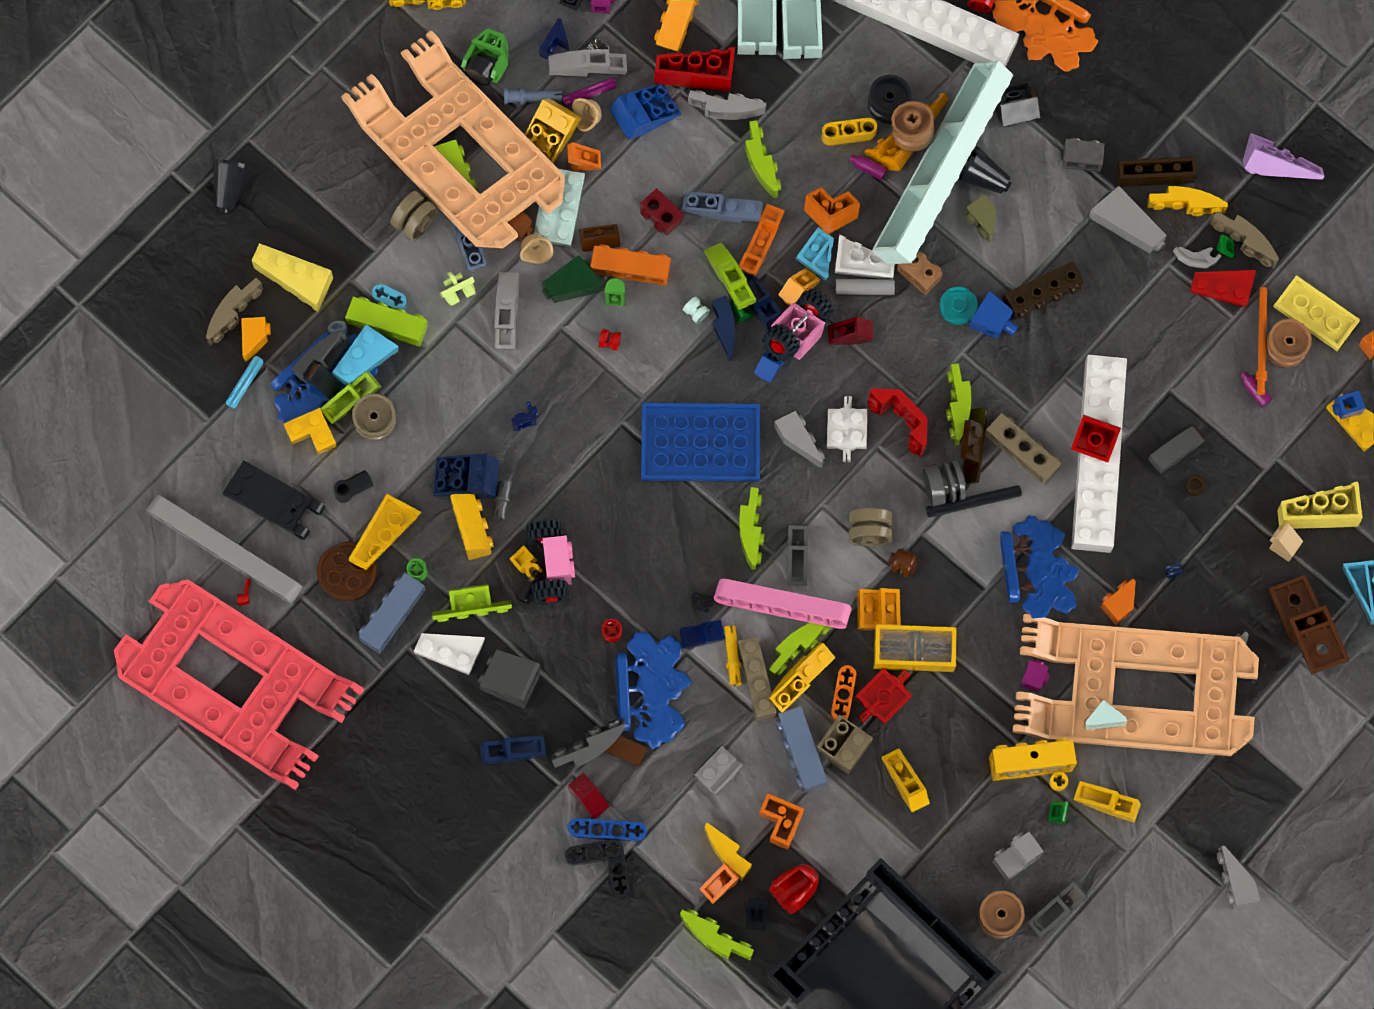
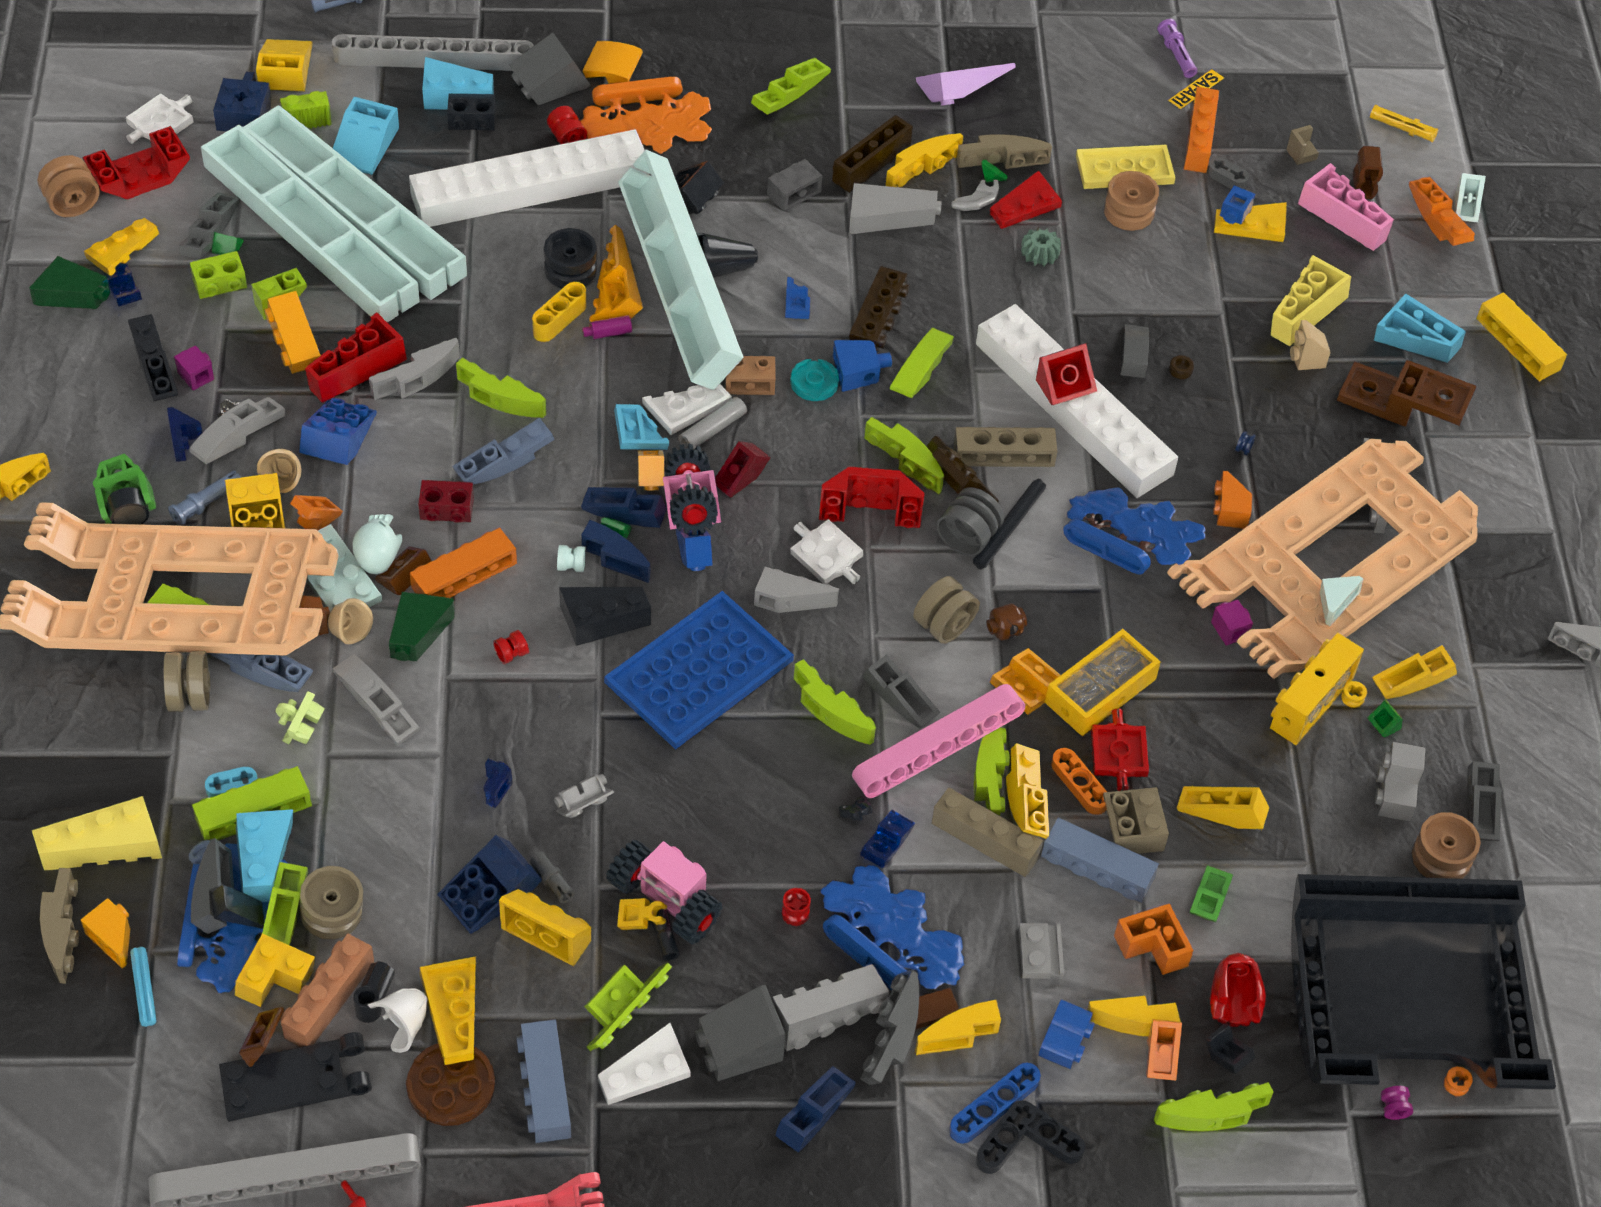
camera: 45 degrees left, 20 degrees down
(273, 463) = (260, 1035): none -> reddish brown slope
(329, 467) = (327, 991): none -> nougat brick
(354, 513) = (407, 1011): none -> white helmet
(417, 566) = (528, 1011): bright green wheel -> none
(570, 469) = (574, 802): none -> light grey hinge
(571, 702) = (829, 1005): none -> light grey wedge
(588, 796) = (941, 1084): dark red slope -> none
(589, 91) = (270, 442): magenta axle -> none
(590, 212) = (376, 544): none -> light aqua helmet
(615, 292) = (476, 596): bright green brick -> none
(627, 774) = (960, 1028): none -> yellow slope
(680, 360) = (603, 611): none -> black wedge
(680, 827) = (1066, 1034): none -> blue brick
(730, 275) = (572, 497): lime slope -> none
(732, 656) = (947, 838): yellow pin -> none
(761, 240) = (570, 454): orange slope -> none
(830, 212) = (614, 382): orange brick -> none
(844, 822) = (1211, 893): none -> bright green slope
(913, 126) = (620, 256): medium nougat wheel -> none
(982, 215) = (760, 293): olive slope -> none
(1003, 240) = (796, 301): none -> blue slope
(1032, 349) = (921, 363): none -> lime slope
(1162, 74) = (794, 84): none -> lime slope
(1200, 333) = (1041, 246): none -> sand green gear
(1251, 386) = (1144, 257): magenta cylinder -> none
(1261, 374) = (1137, 237): orange bar -> none

